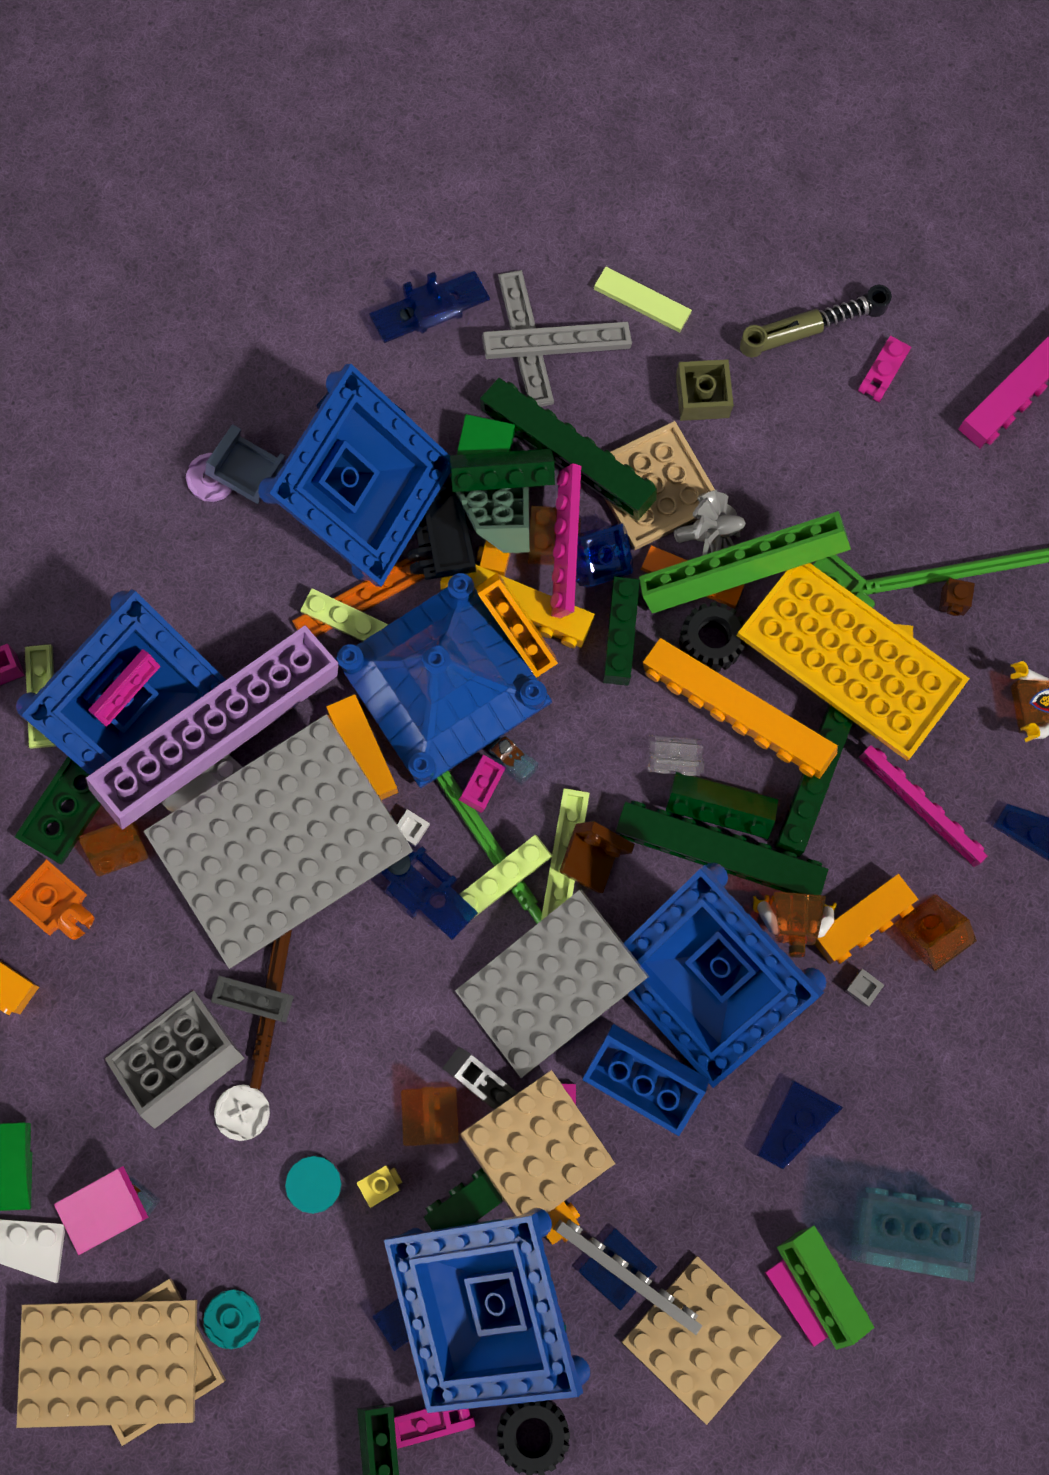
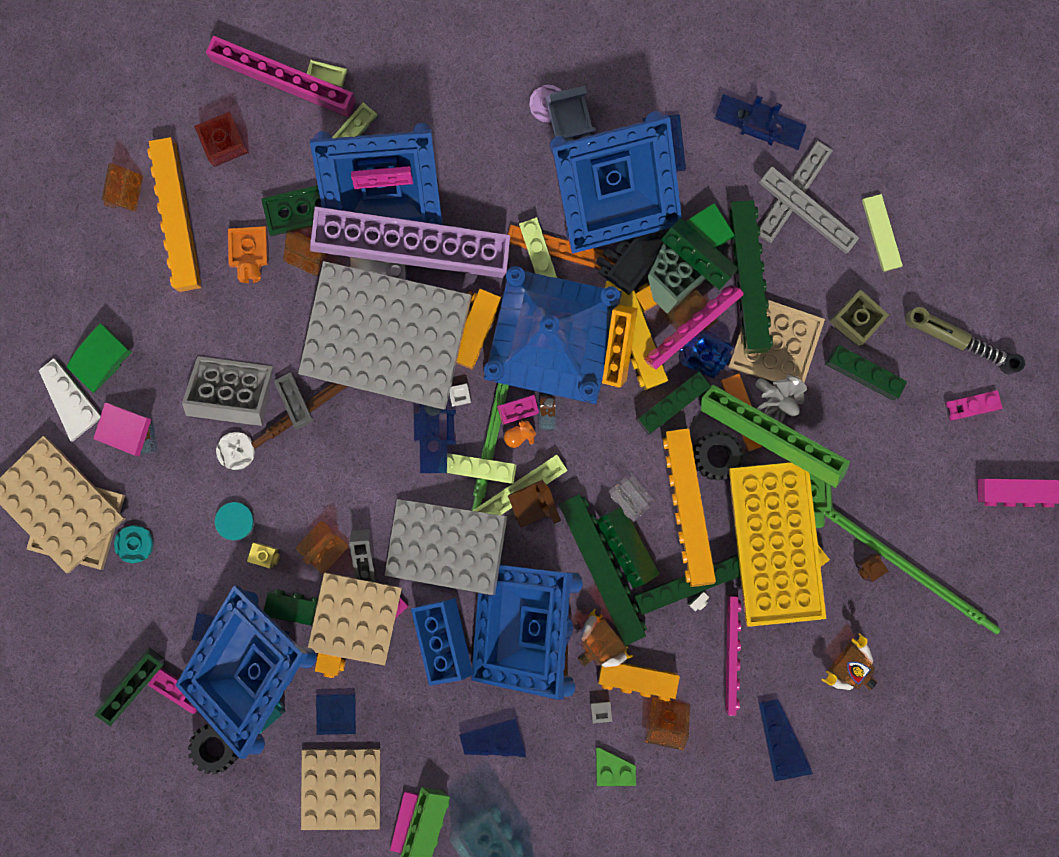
camera: 50 degrees right, 10 degrees up
(506, 810) = (517, 435): none -> orange animal
(638, 1281) = (335, 732): light grey plate -> none
(762, 432) = (866, 373): none -> dark green brick
(840, 788) = (698, 601): none -> white plate
(935, 1031) = (613, 770): none -> bright green wing

